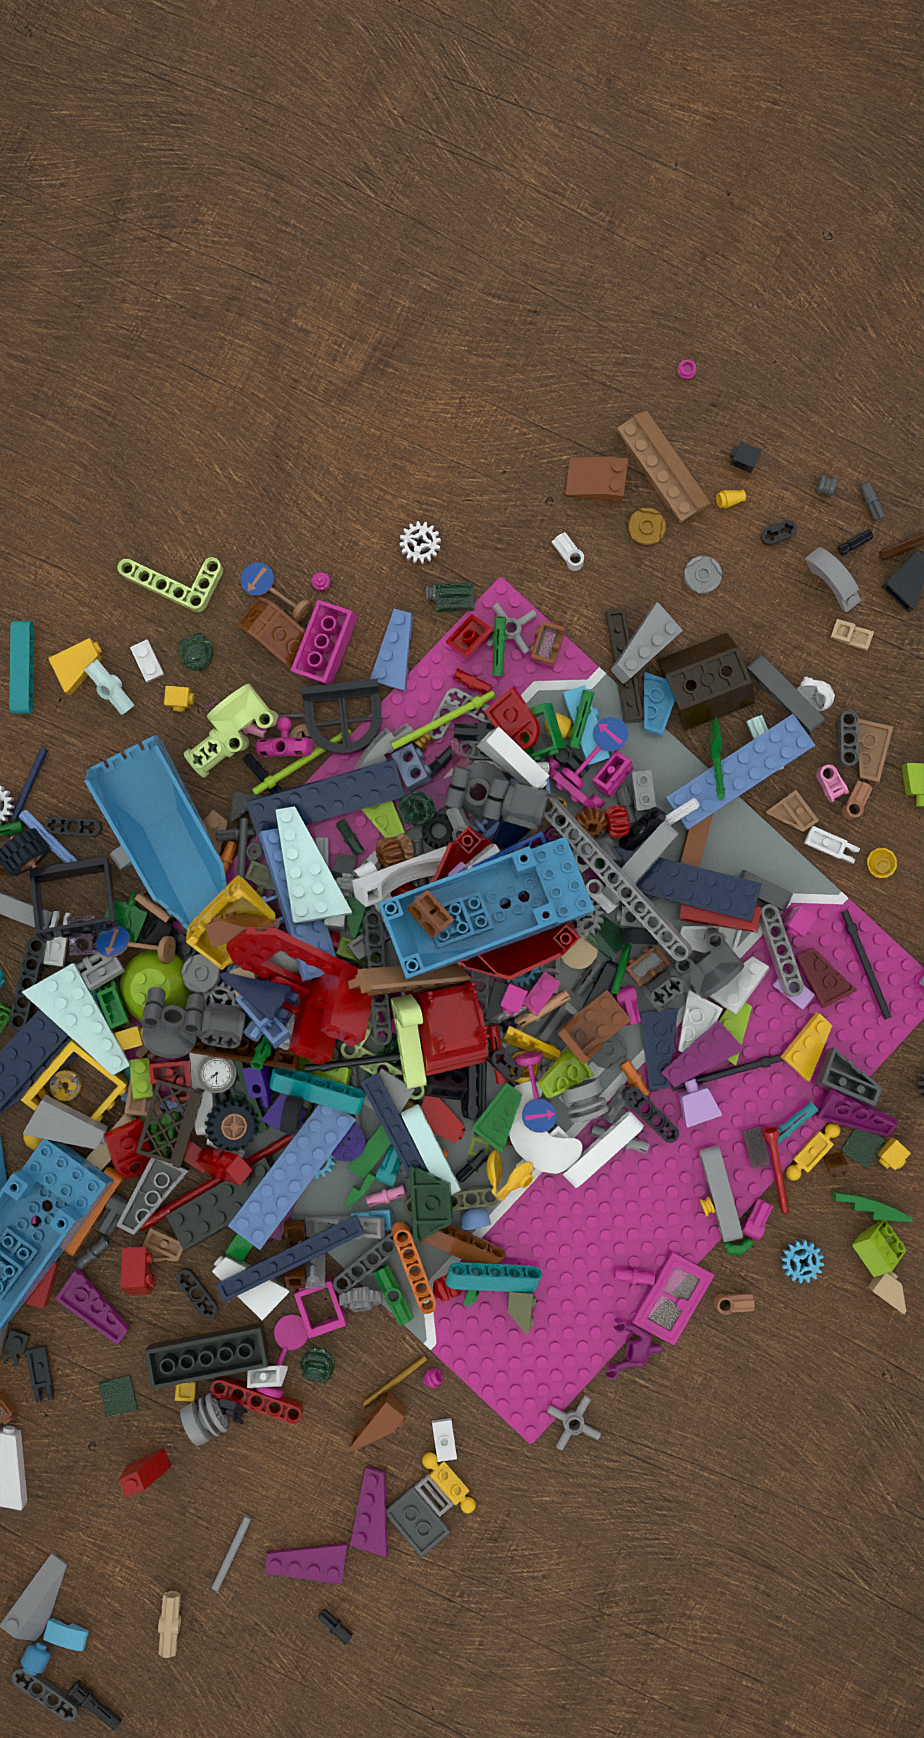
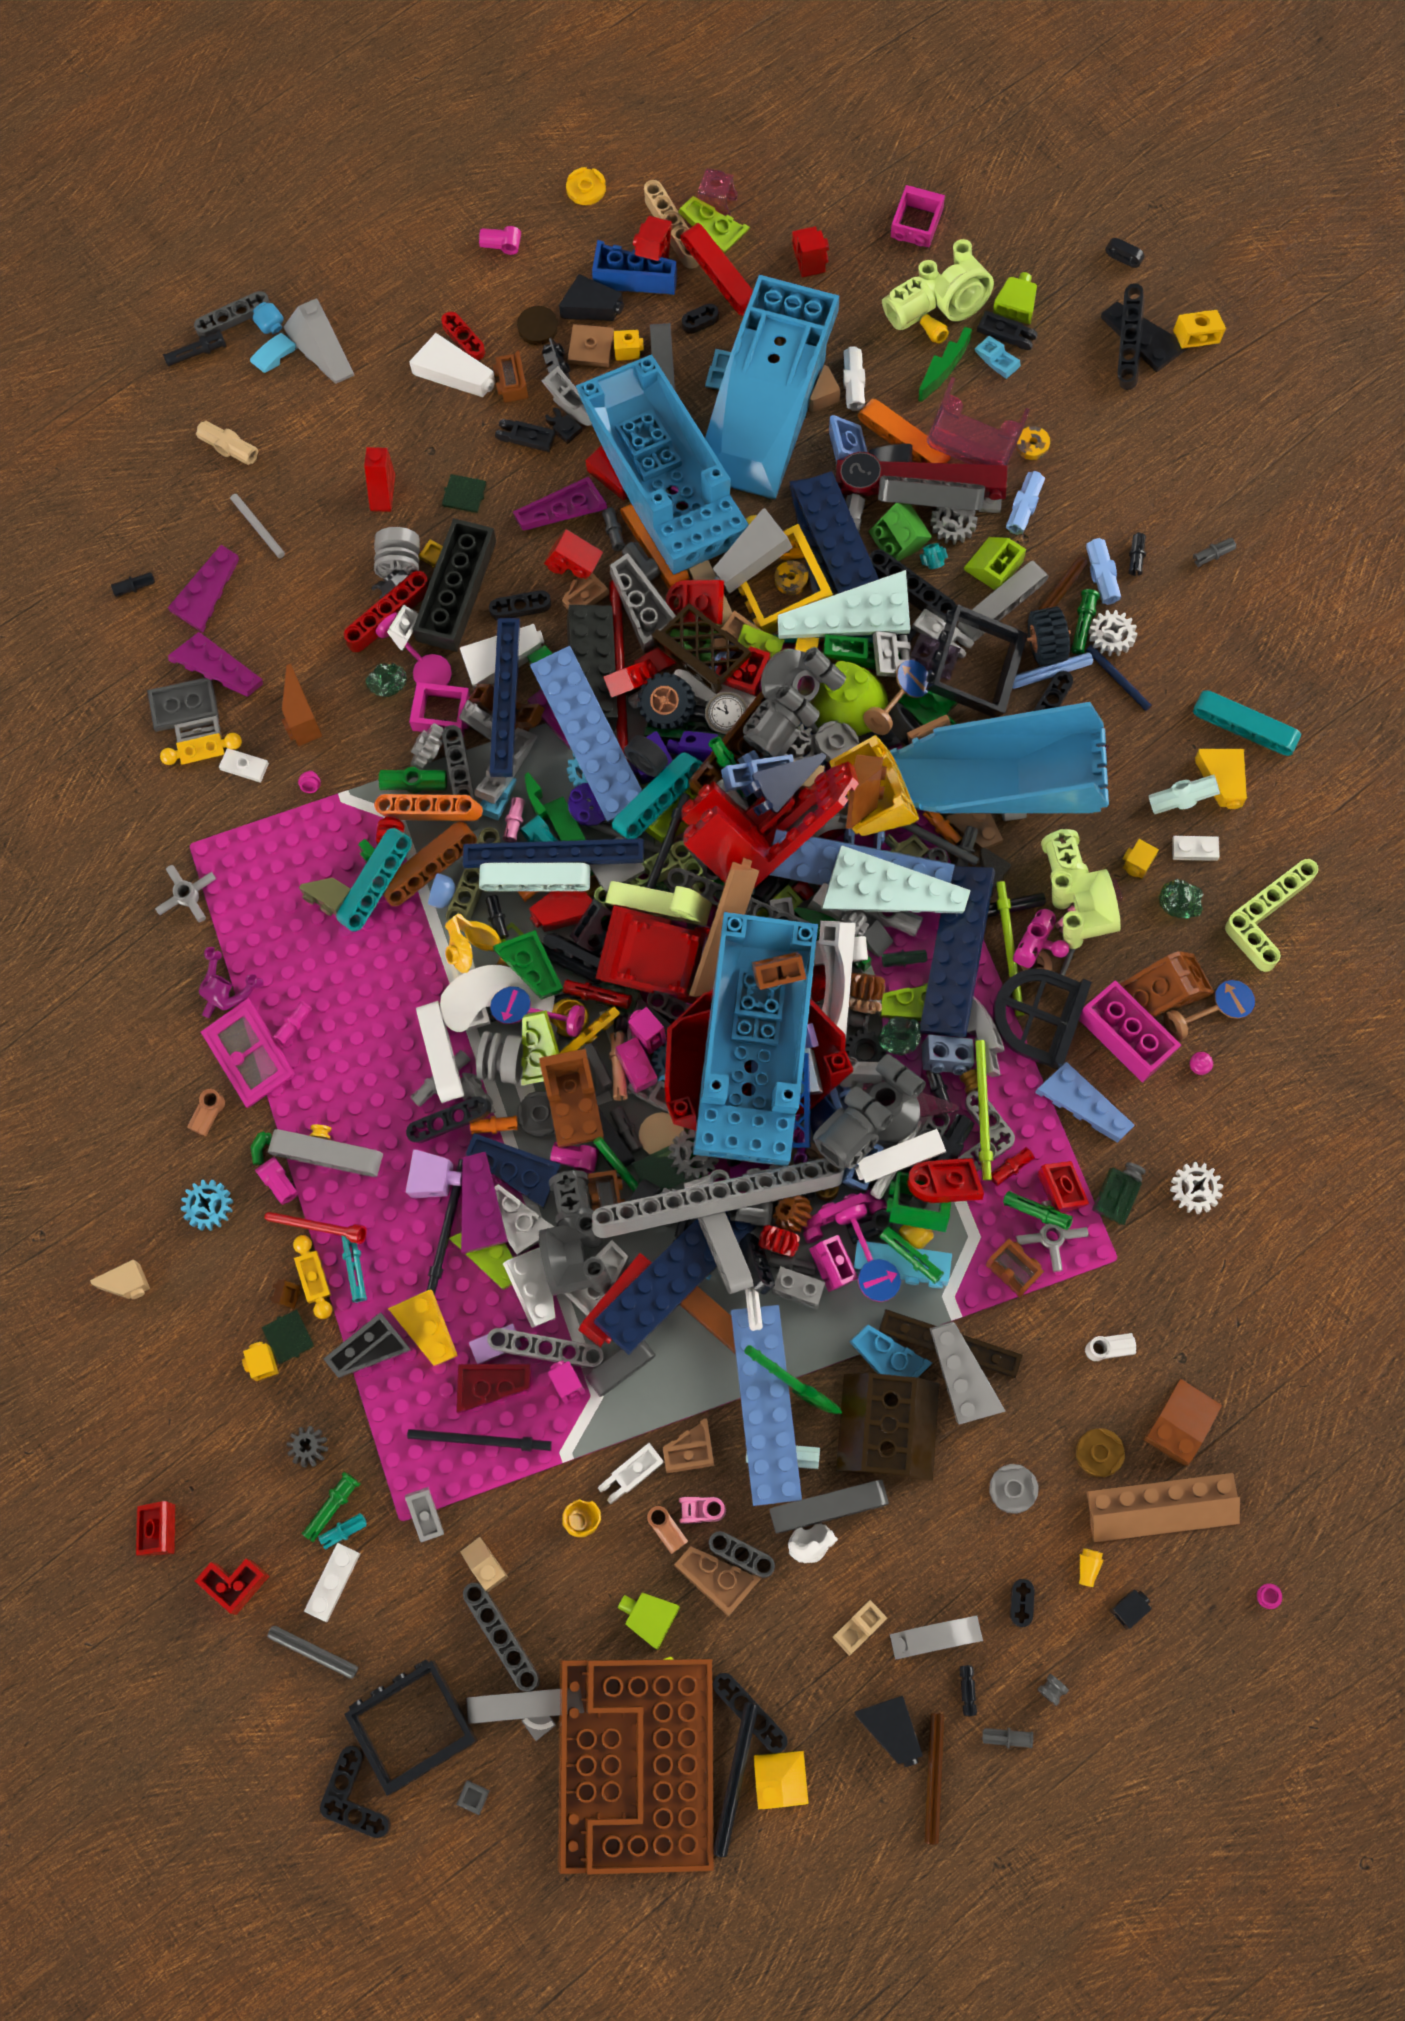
camera: 125 degrees right, 15 degrees down
(394, 1381) = (327, 744): pearl gold bar -> none
(430, 1203) = (484, 847): dark green wing -> none
(508, 1061) = (579, 987): black beam -> none
(756, 1147) = (348, 1214): clear smoke plate -> none
(852, 1113) = (331, 1333): magenta wing -> none
(876, 1209) = (212, 1315): green slope -> none
(879, 1248) = (172, 1295): lime slope -> none

